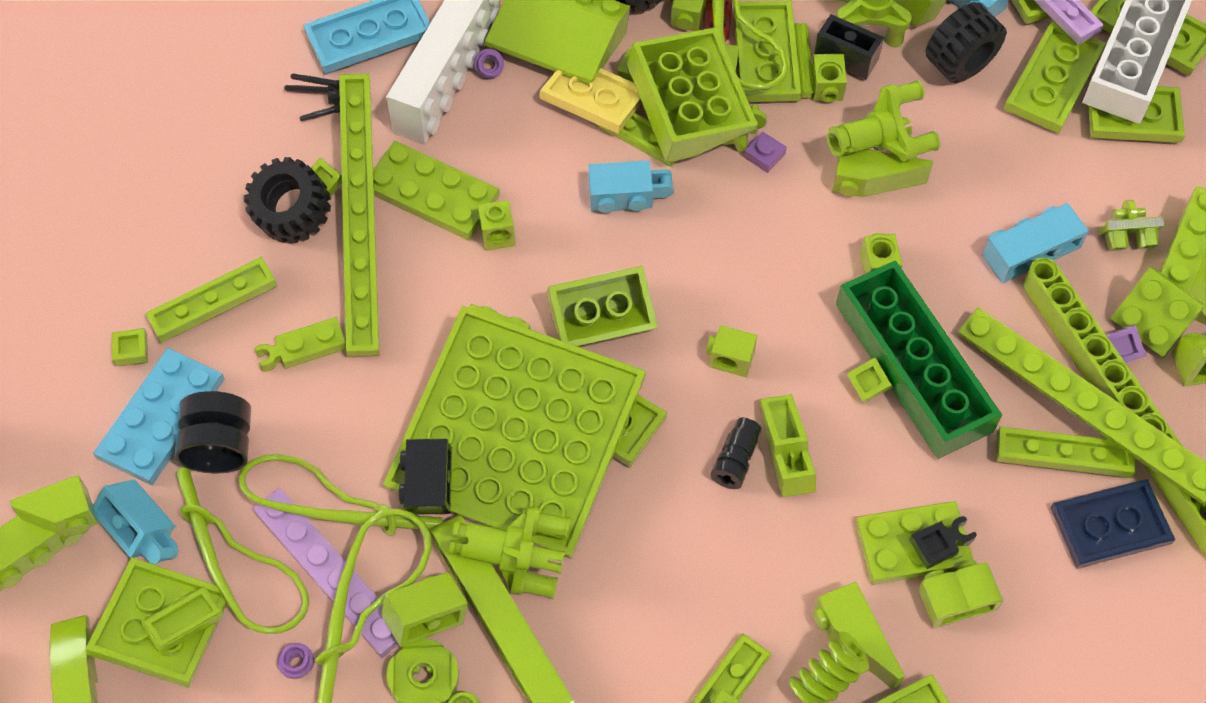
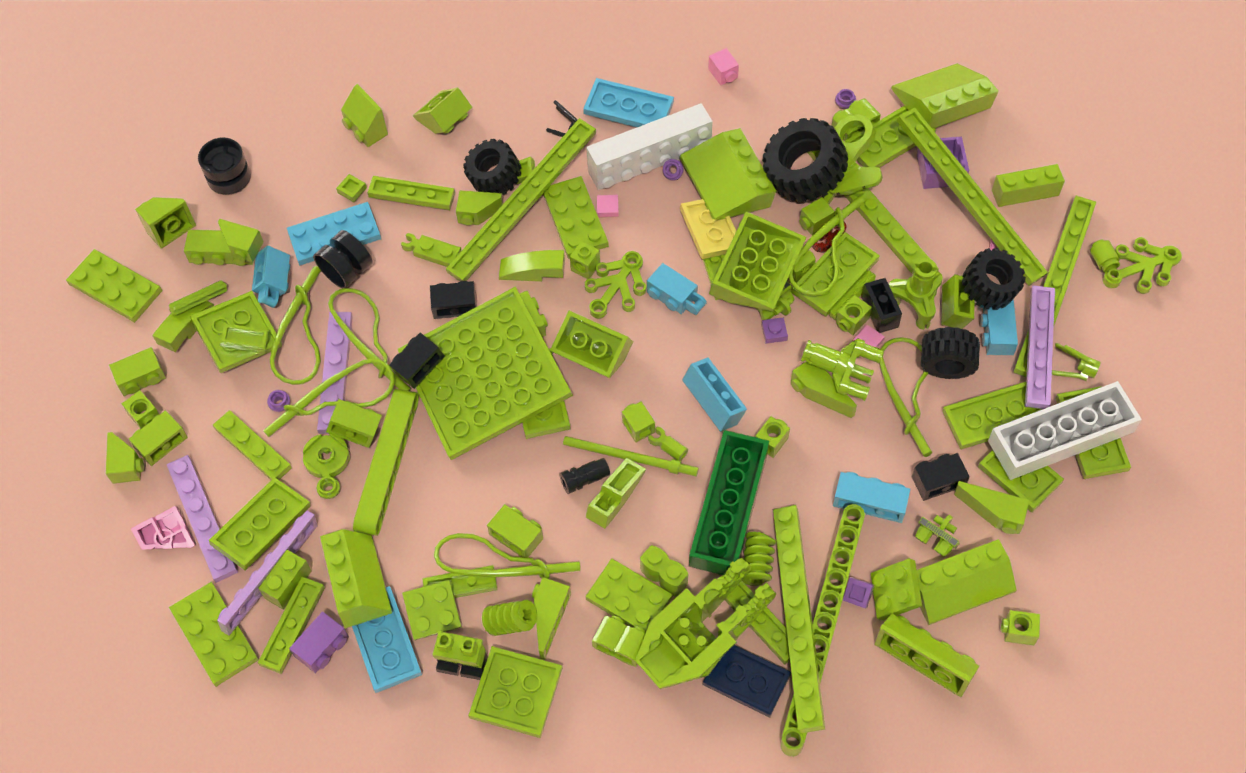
camera: 45 degrees right, 0 degrees up
(65, 252) = (363, 117): none -> lime slope
(65, 622) = (198, 297): none -> lime axle
(155, 180) = (443, 111): none -> lime slope
(309, 257) = (477, 207): none -> lime slope
(390, 379) = (452, 299): none -> black brick
(443, 274) = (533, 266): none -> lime slope
(455, 151) = (607, 206): none -> bright pink tile
(515, 550) = (420, 428): lime wheel -> none
(553, 224) = (616, 282): none -> lime plant
(730, 574) = (515, 531): none -> lime brick
(783, 259) = (714, 394): none -> medium azure brick
(786, 350) = (668, 445): none -> lime bar
(795, 593) = (538, 567): none -> lime piece
(814, 369) = (673, 466): none -> lime bar
(863, 91) = (870, 336): none -> bright pink tile
(869, 380) = (693, 495): lime plate -> none
(931, 483) = (658, 568): none -> lime brick
(938, 544) = (632, 603): black plate -> none
(990, 141) = (909, 421): none -> lime piece
(1002, 392) = (758, 557): none -> lime piece
(1039, 549) = (678, 643): none -> lime connector
(1073, 171) = (939, 475): none -> black brick
(1150, 162) = (997, 508): none -> lime slope

